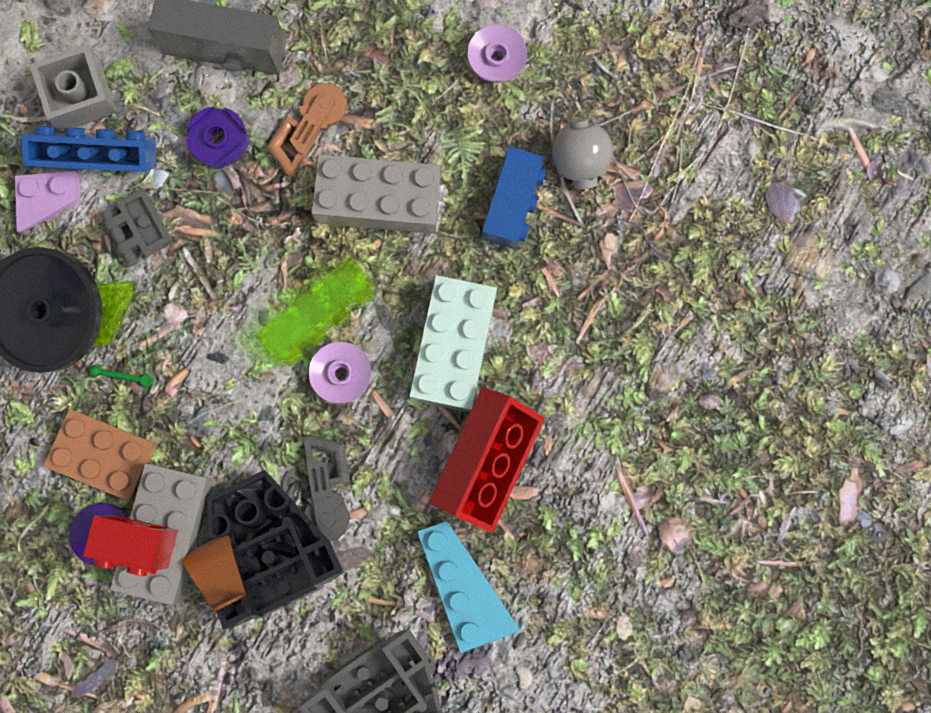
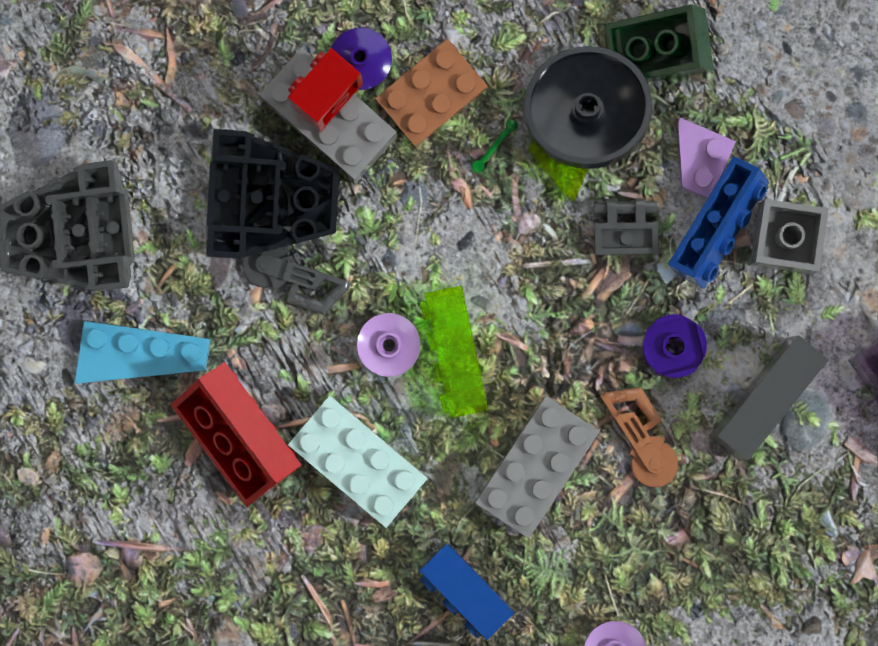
camera: 115 degrees right, 5 degrees up
(215, 572) = (264, 146): dark orange piece -> none

